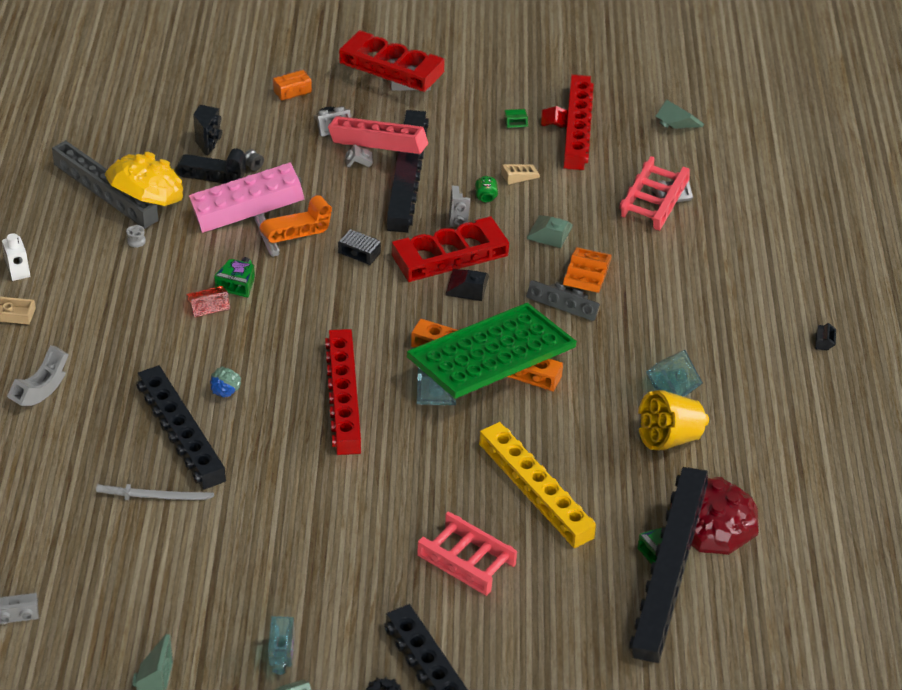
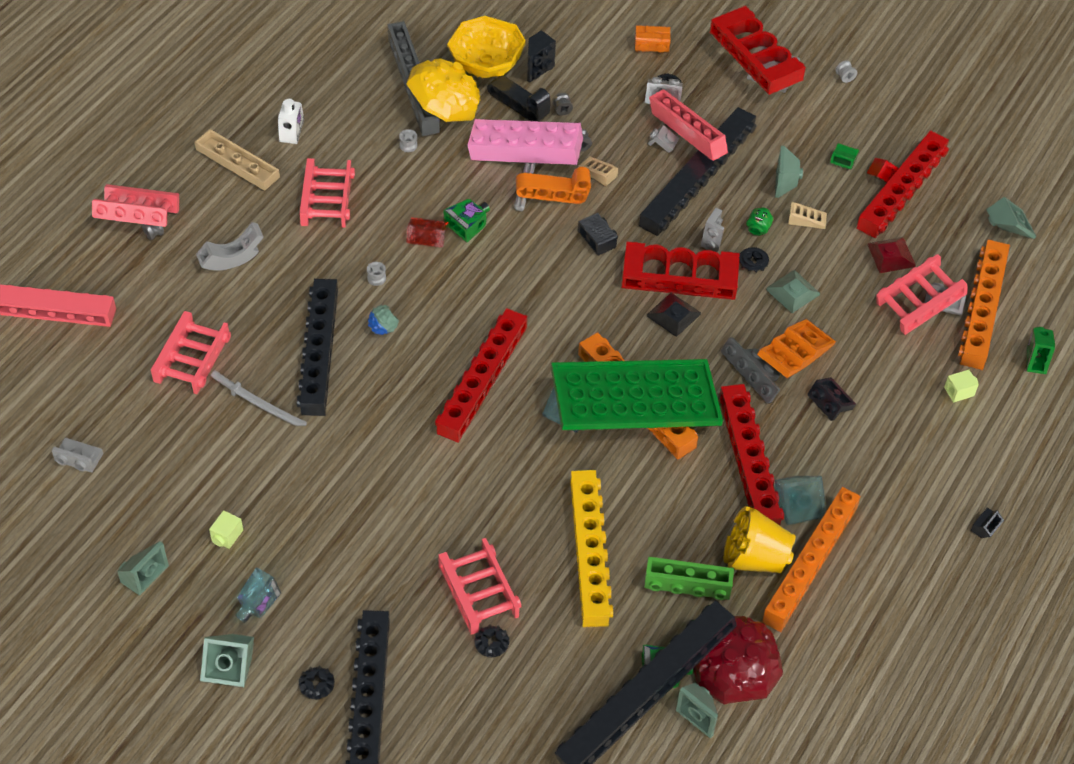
camera: 30 degrees right, 10 degrees up
(44, 473) = (179, 339): none -> coral fence
(80, 314) = (310, 185): none -> coral fence
(158, 131) = (486, 46): none -> yellow rock
(187, 350) = (376, 273): none -> light grey wheel
(208, 607) = (226, 529): none -> yellowish green brick
(332, 198) = (606, 178): none -> tan slope
(470, 56) = (846, 71): none -> light grey wheel
(480, 144) = (787, 172): none -> sand green slope
(502, 596) = (496, 648): none -> black gear
(507, 218) = (758, 255): none -> black gear
(605, 177) = (891, 255): none -> dark red slope
(608, 358) = (749, 453): none -> red brick
(635, 470) = (689, 578): none -> bright green brick
(640, 296) = (830, 397): none -> black bracket
(705, 185) = (984, 304): none -> orange brick
(717, 408) = (811, 559): none -> orange brick
(719, 564) = (698, 708): none -> sand green slope
(732, 247) = (961, 385): none -> yellowish green brick
(771, 199) = (1043, 342): none -> green torso

